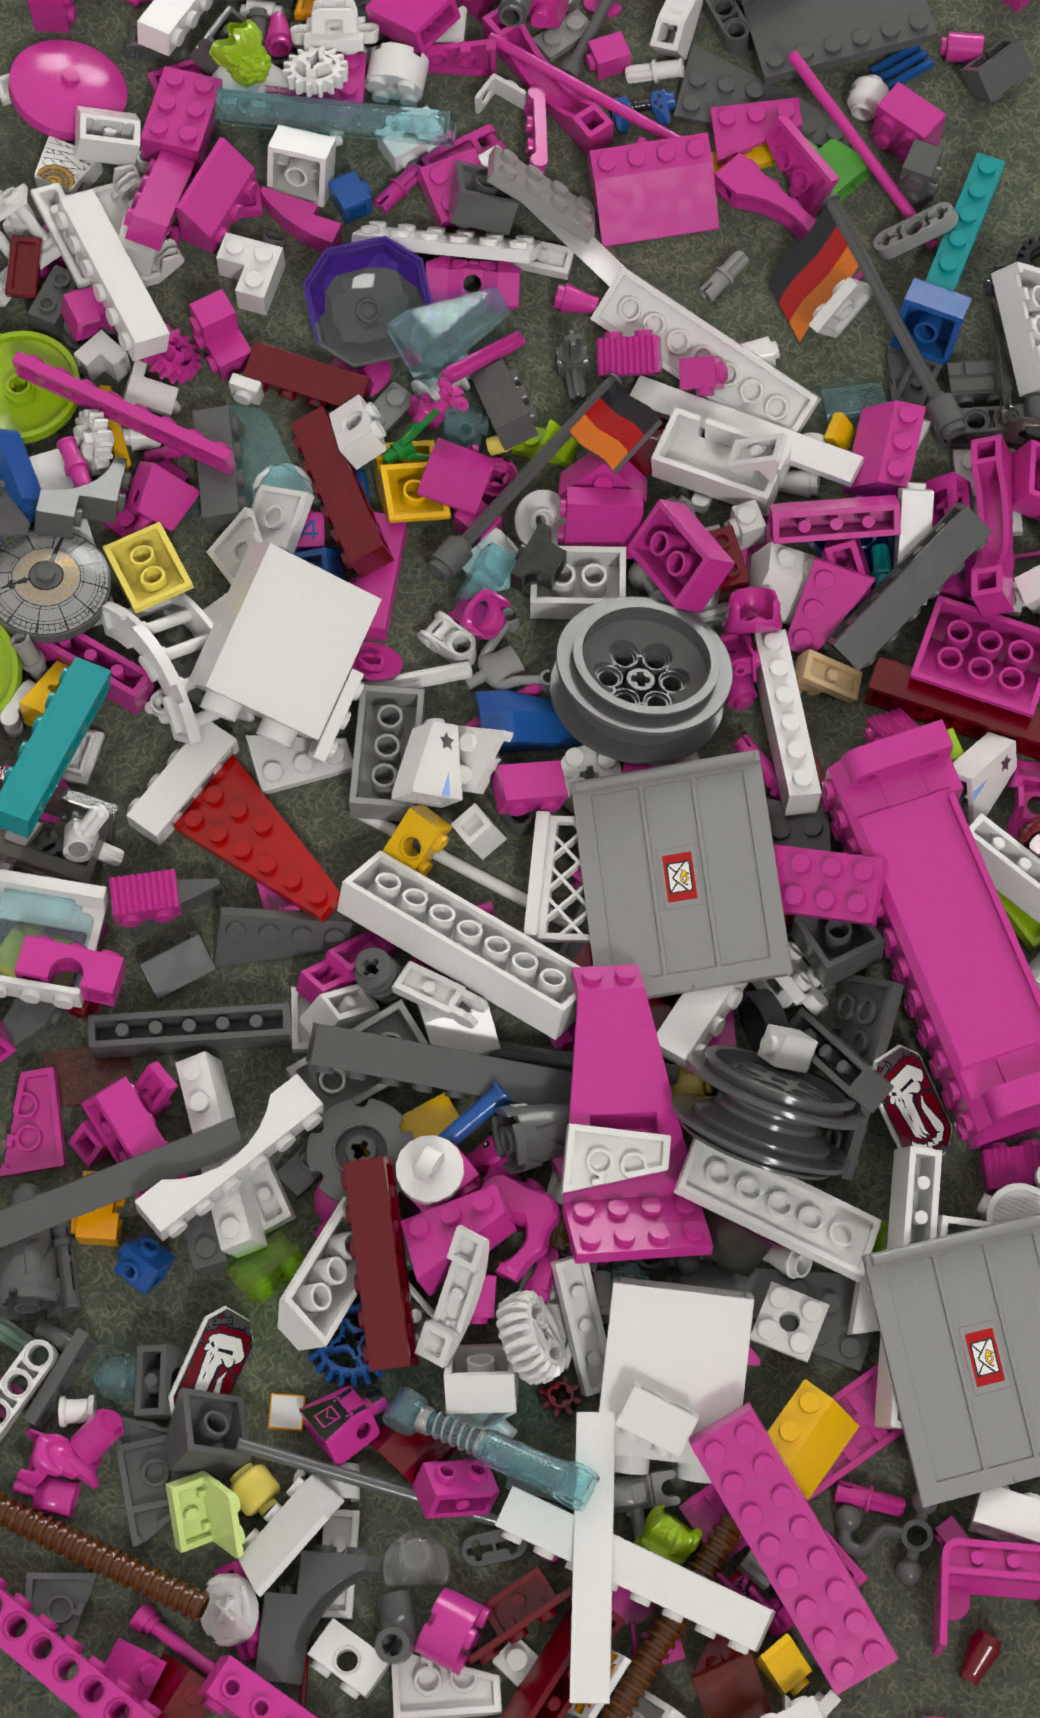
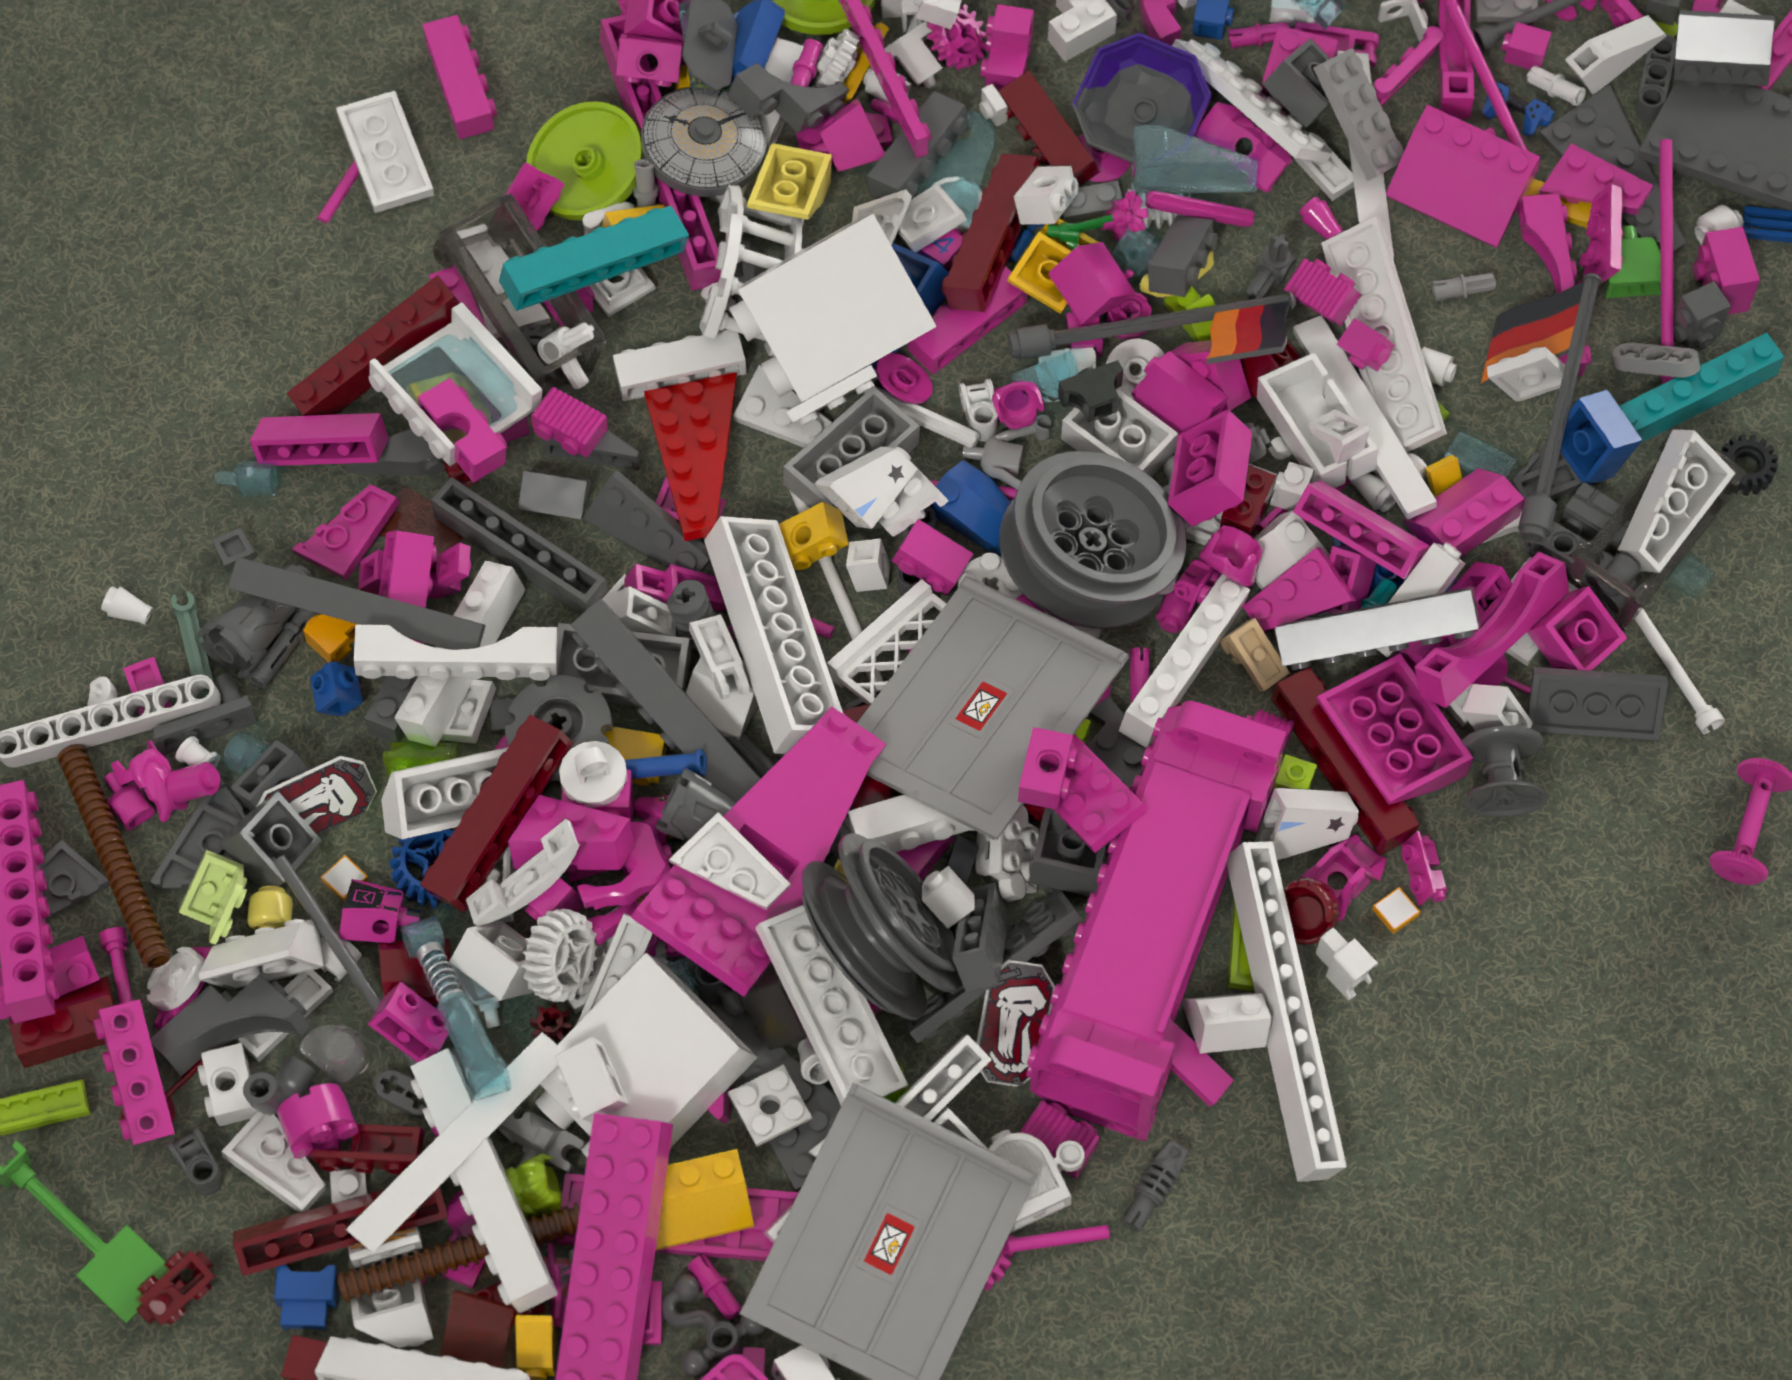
camera: 40 degrees right, 5 degrees down
(785, 907) = (1043, 787): none -> dark pink brick

